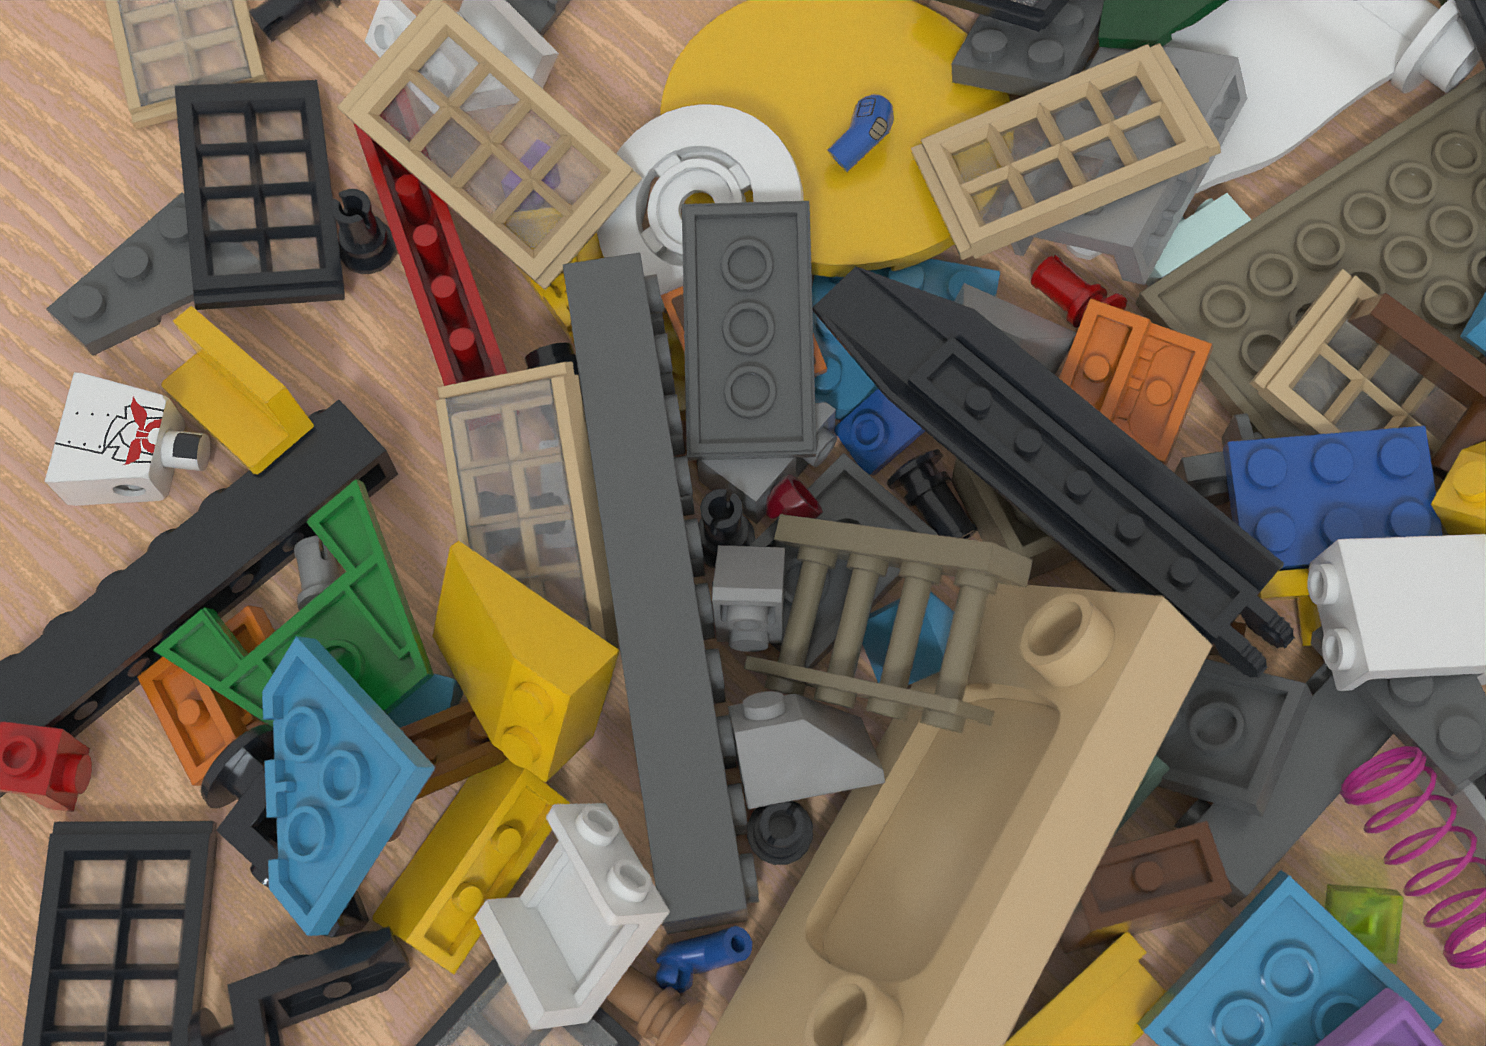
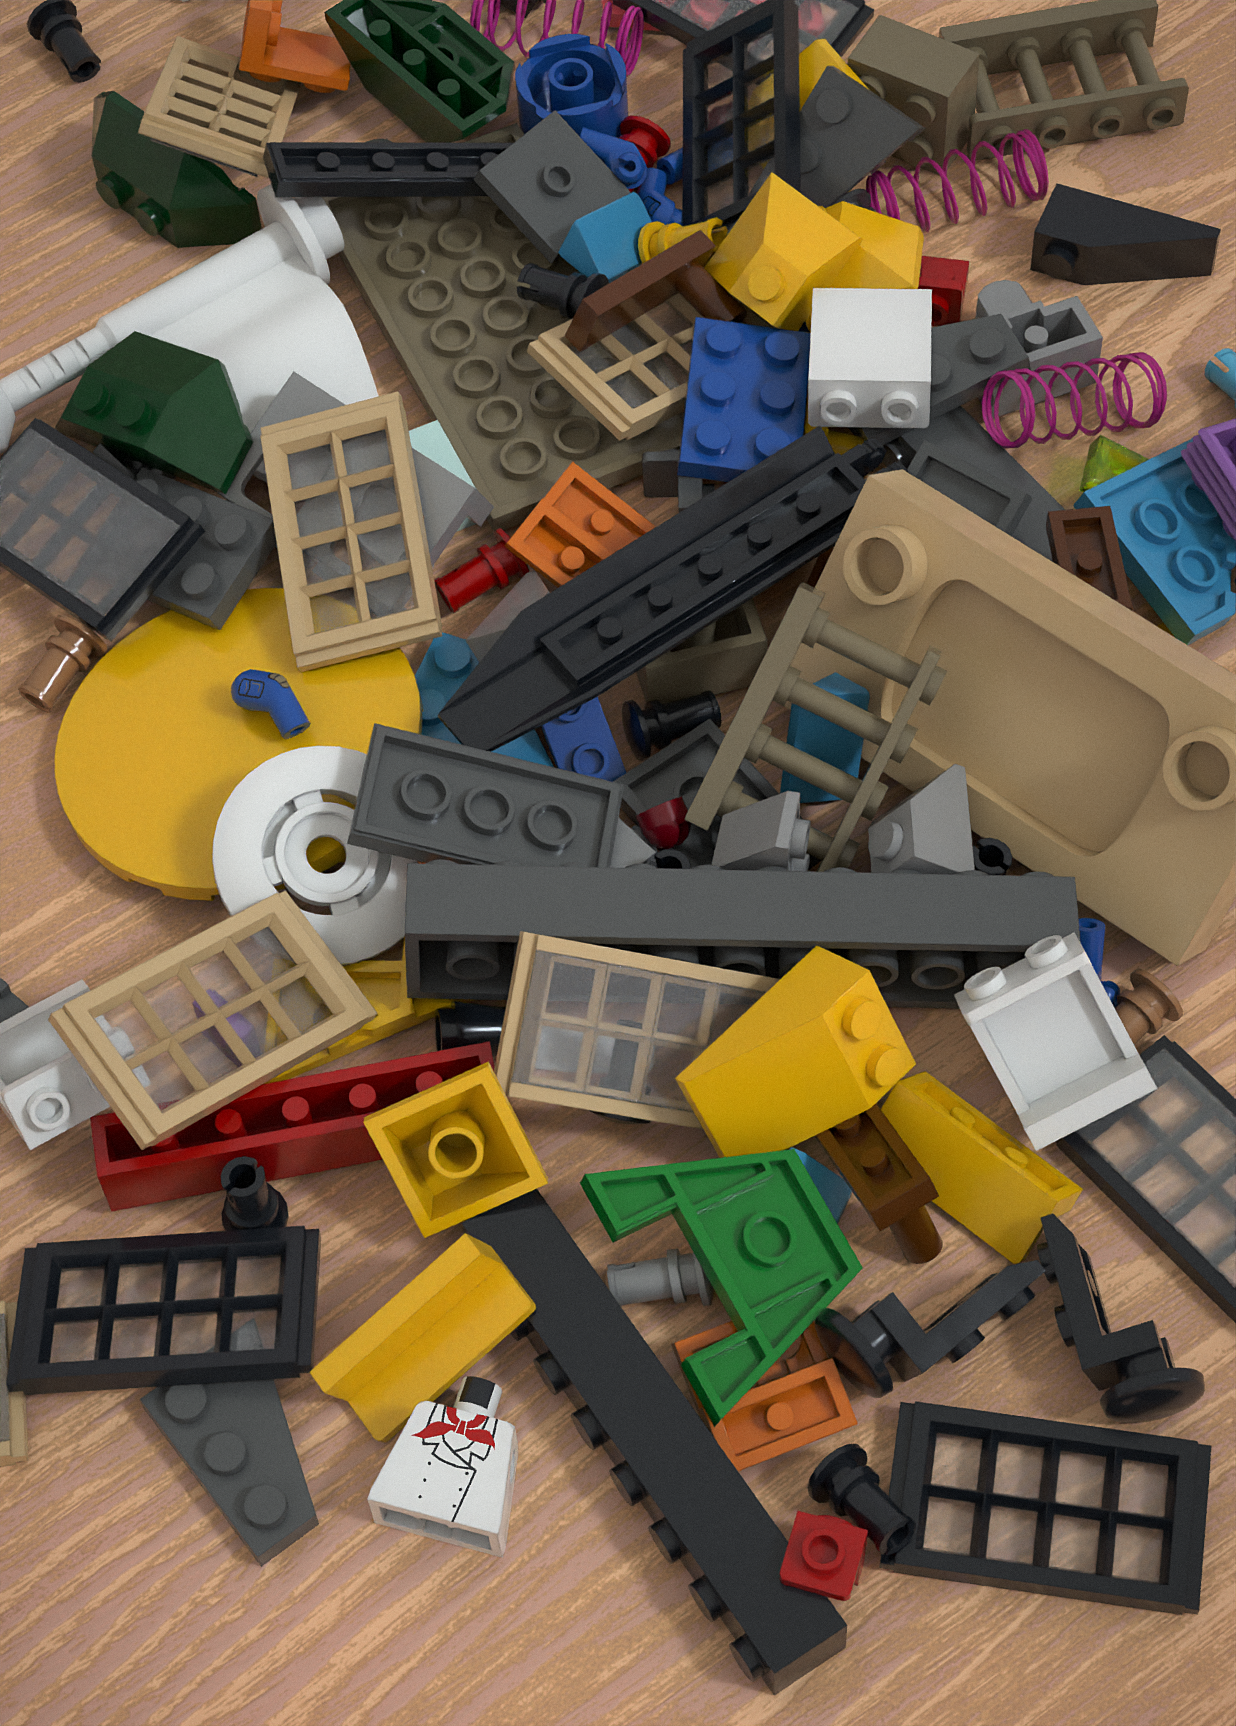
camera: 80 degrees left, 10 degrees down
(101, 795) = (855, 1492): none -> black pin
(334, 785) = (906, 1219): dark azure plate -> none
(385, 372) = (456, 1150): none -> yellow slope
(1440, 294) = (558, 289): none -> black pin

